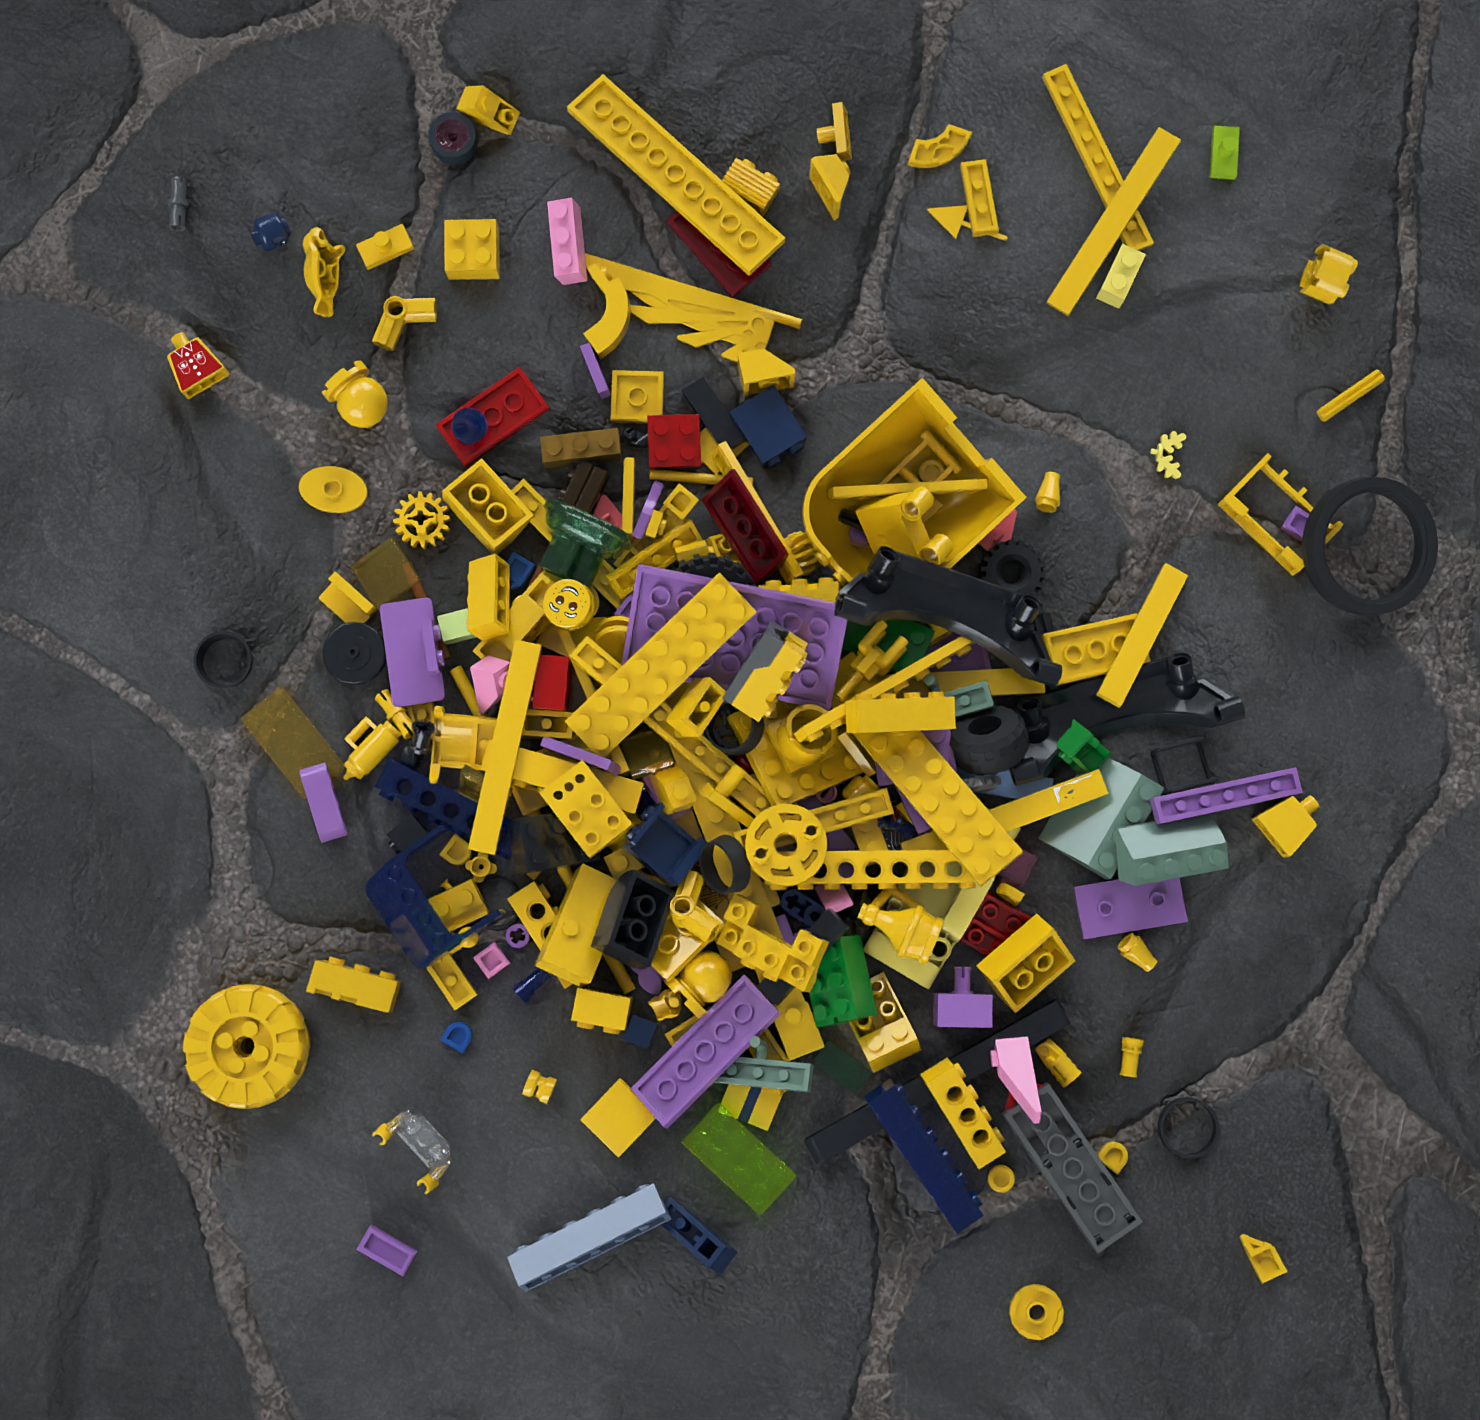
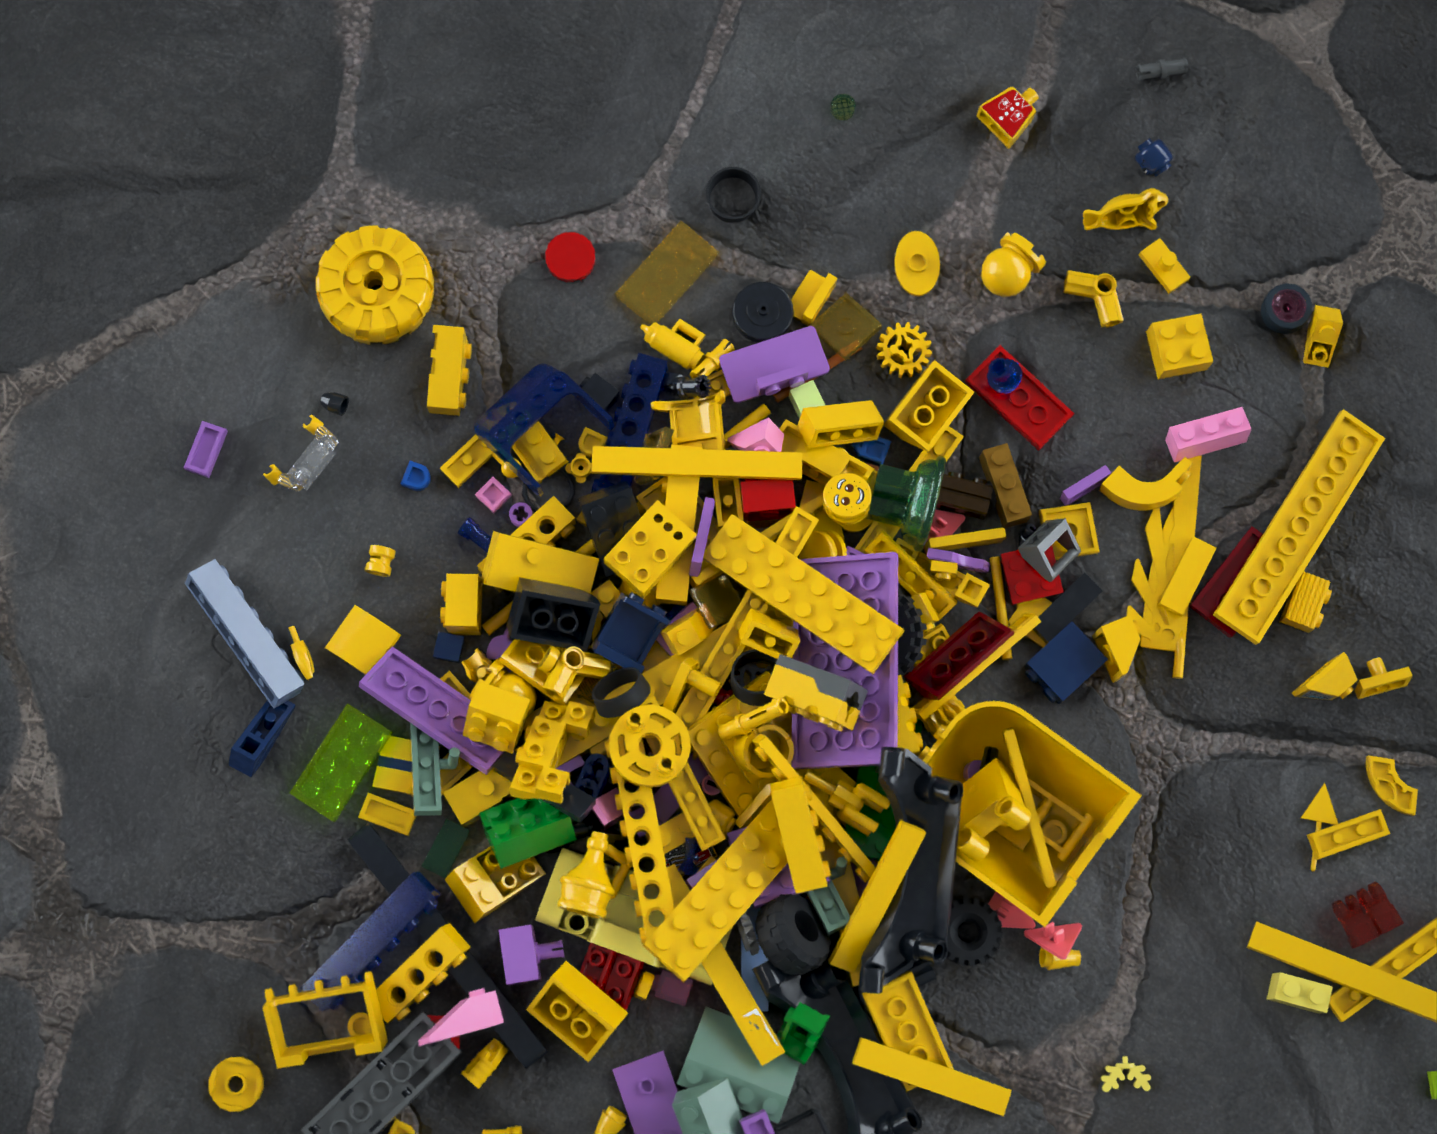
camera: 75 degrees right, 5 degrees down
(151, 531) = (843, 107): none -> clear green tile
(255, 839) = (570, 257): none -> red tile
(323, 802) = (615, 310): medium lavender beam -> none
(364, 1107) = (335, 402): none -> black hose
(622, 1182) = (301, 654): none -> yellow hand
(646, 424) = (1034, 547): none -> dark grey tile
(677, 931) = (549, 659): none -> yellow tile
(704, 292) = (1187, 576): none -> yellow tile
(728, 993) = (496, 717): none -> yellow brick
(781, 745) = (744, 723): none -> yellow pin
(797, 1119) = (387, 814): none -> yellow tile
(969, 651) = (877, 896): none -> yellow tile
(1019, 1247) = (298, 1054): none -> yellow hinge
(1036, 490) = (1055, 939): none -> coral piece
(1065, 188) = (1364, 928): none -> clear red legs

